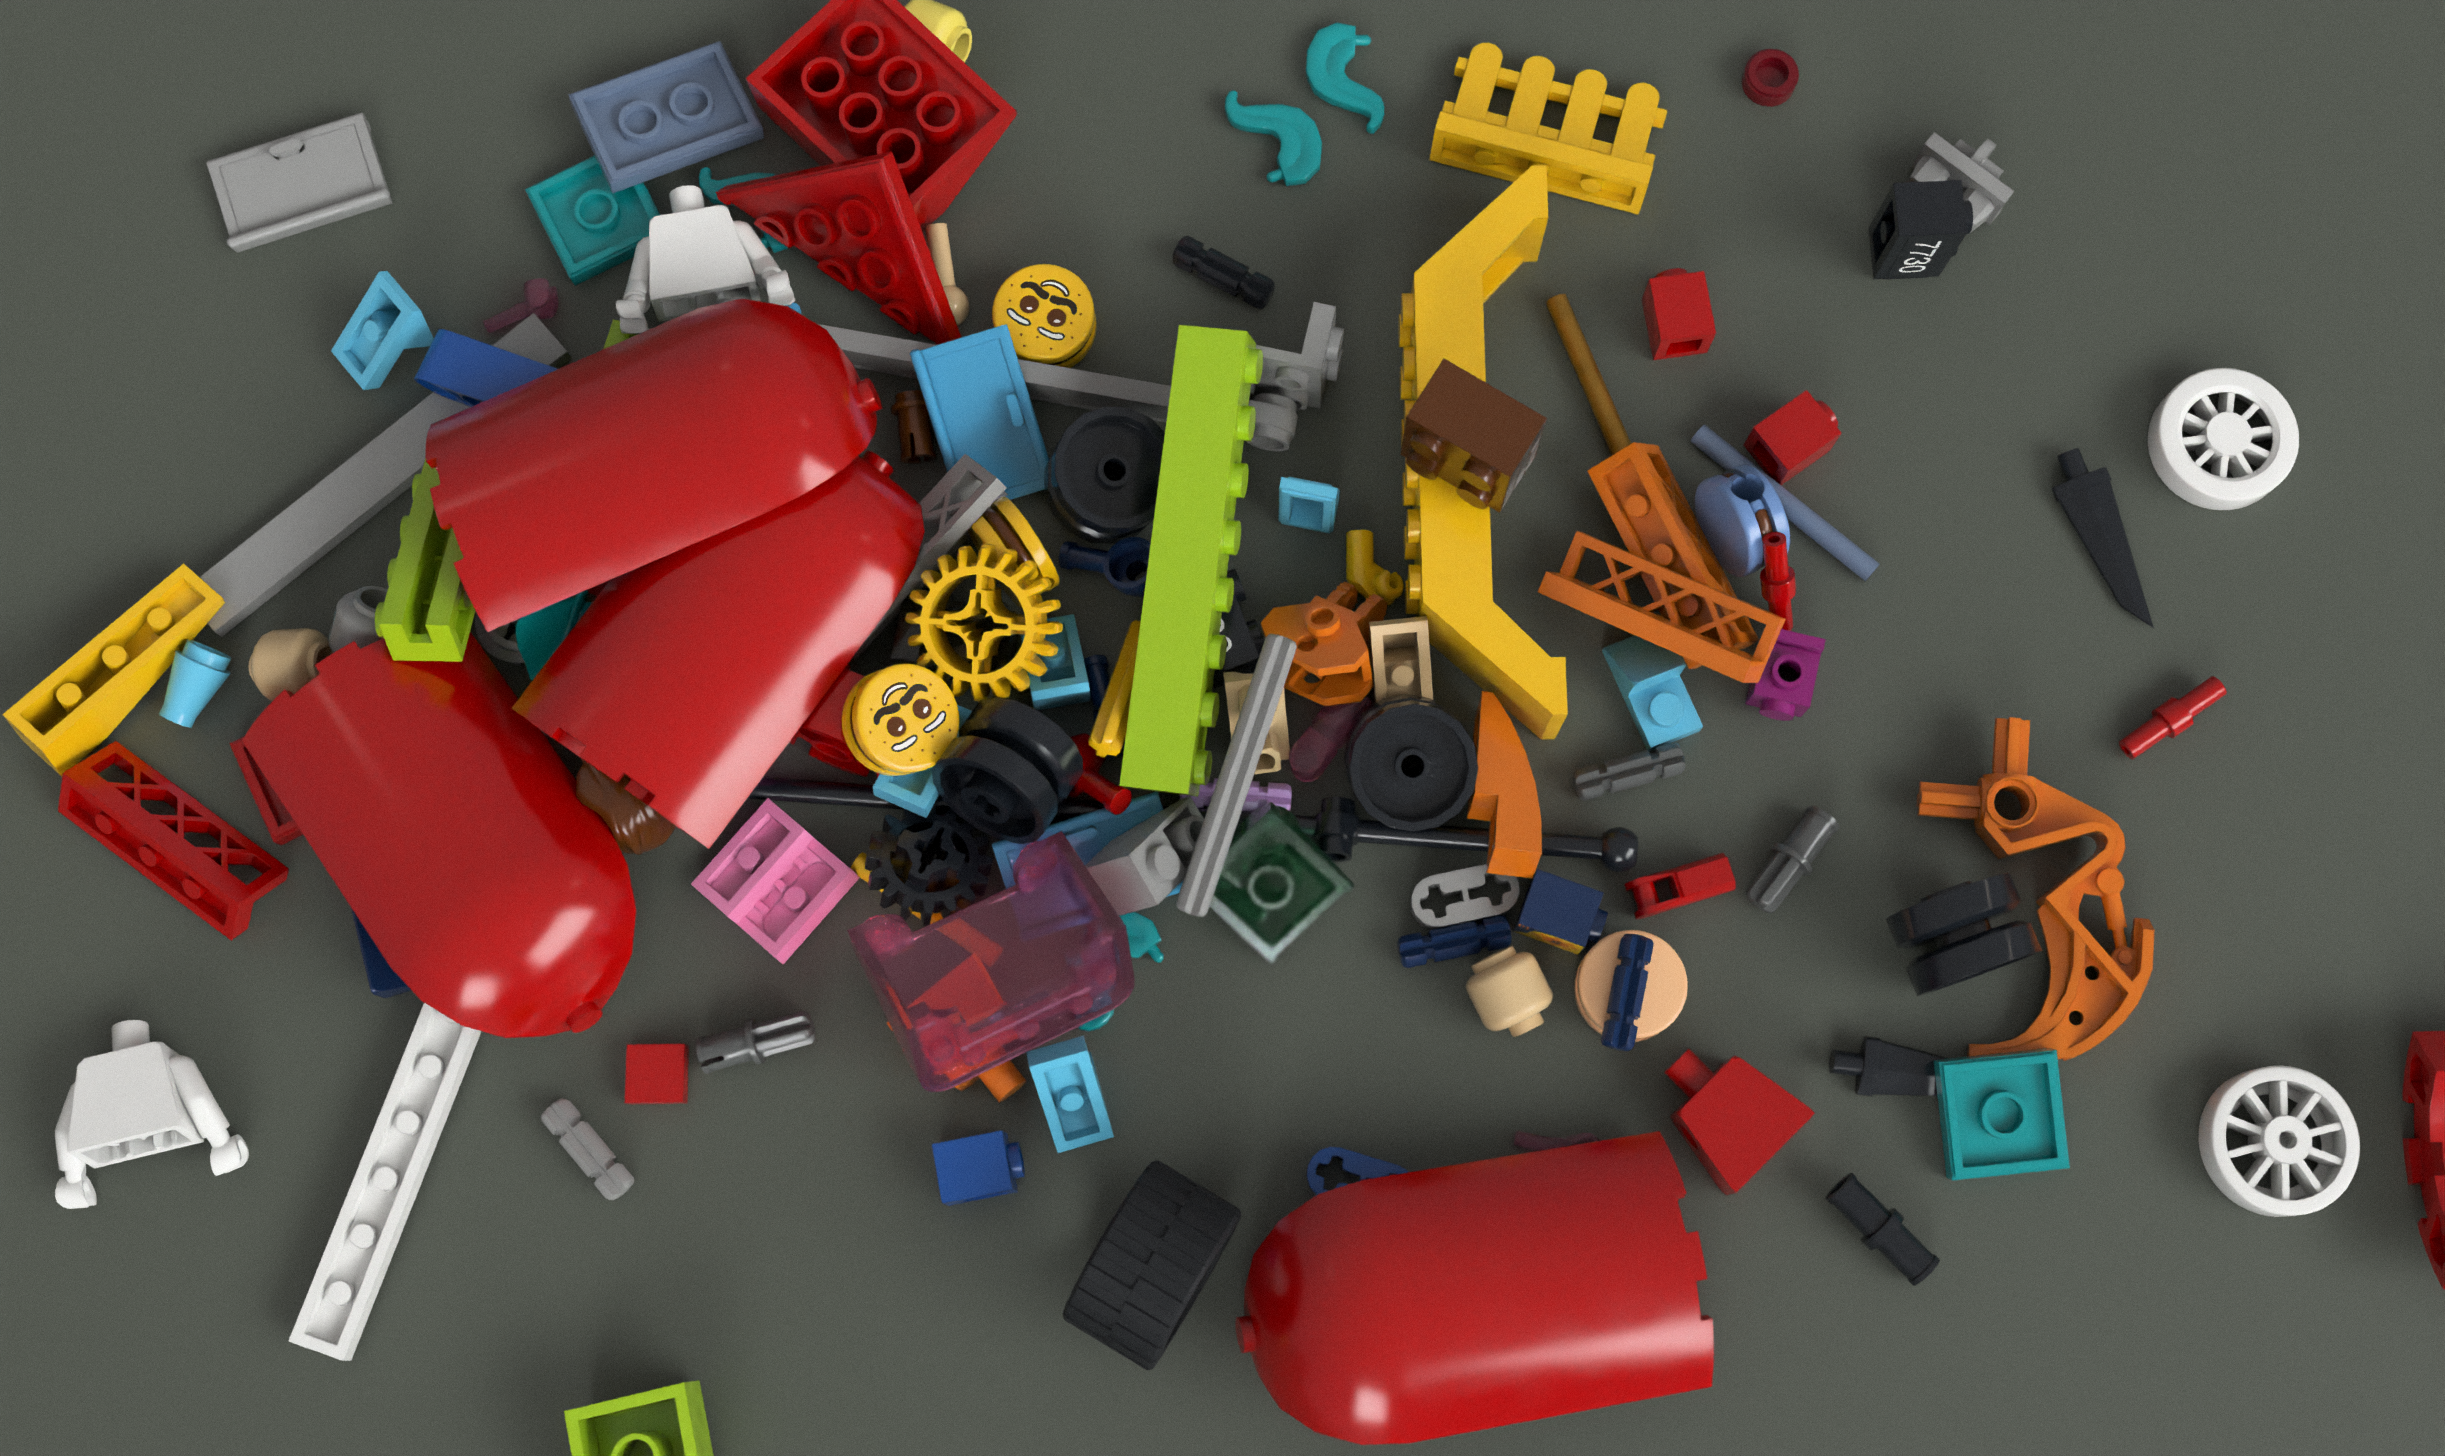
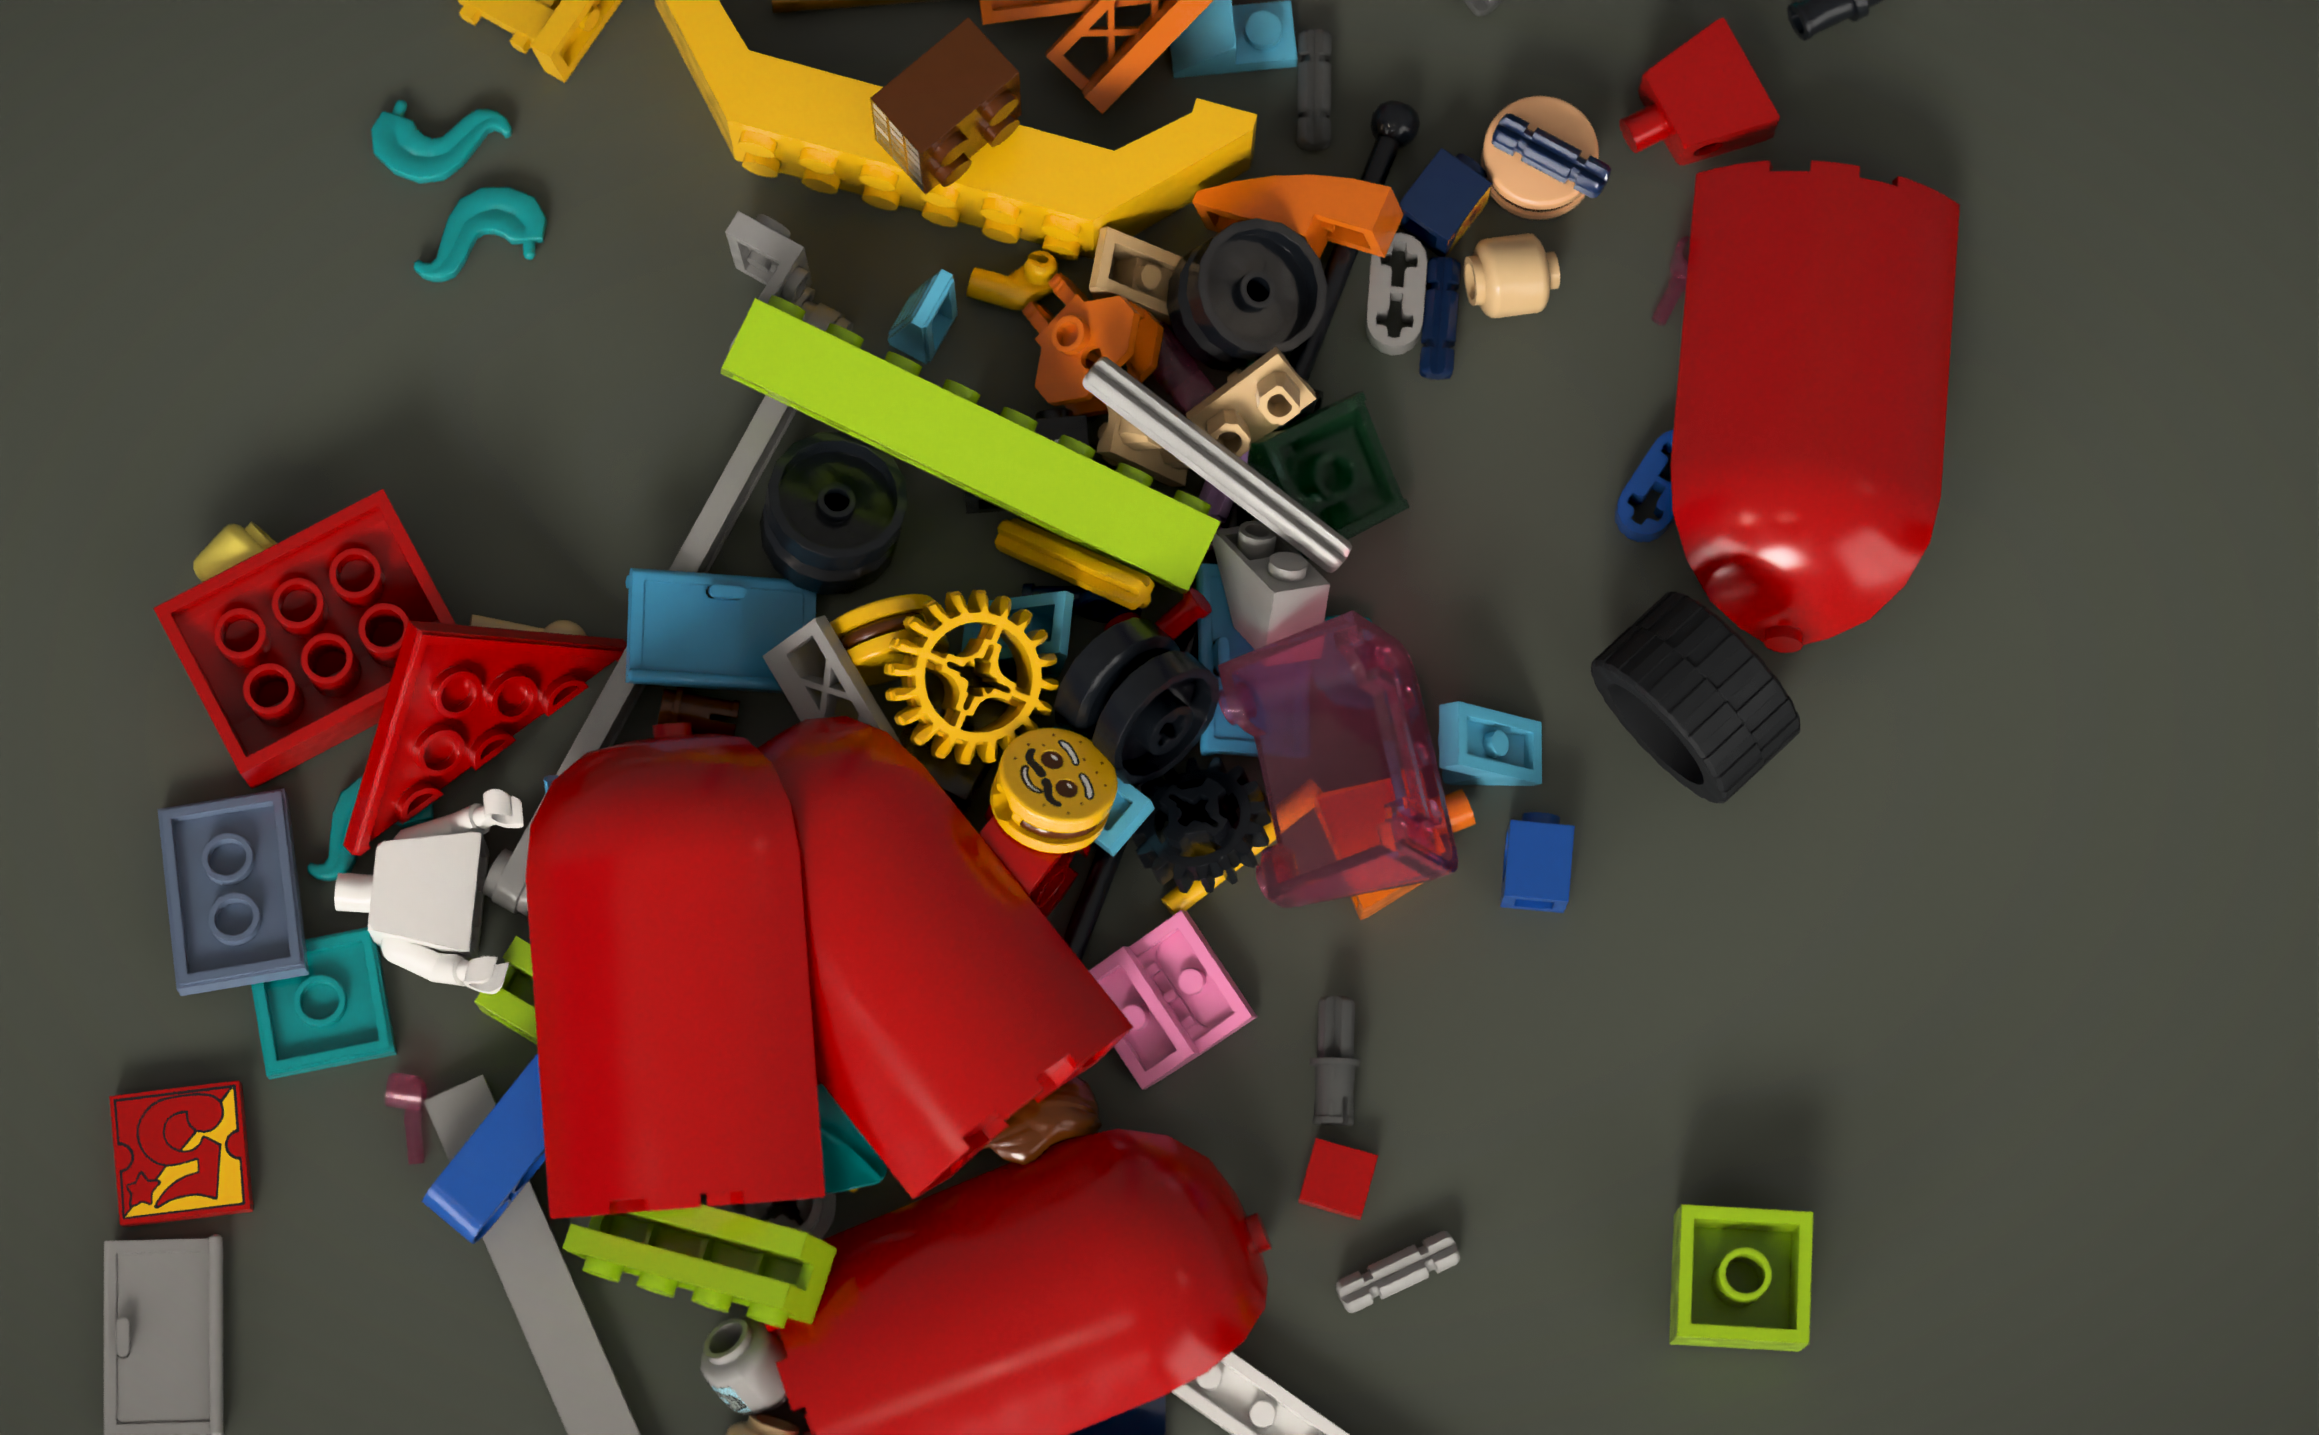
camera: 80 degrees left, 0 degrees up
(380, 332) = (396, 1274): medium azure slope -> none
(448, 148) = (181, 1153): none -> tile
(1046, 314) = (614, 529): yellow head -> none
(1119, 564) = (927, 537): dark blue bar -> none
(1223, 272) = (625, 335): black axle -> none
(1305, 791) = (1253, 403): none -> tan hips
(1687, 883) = (1448, 71): red bar -> none

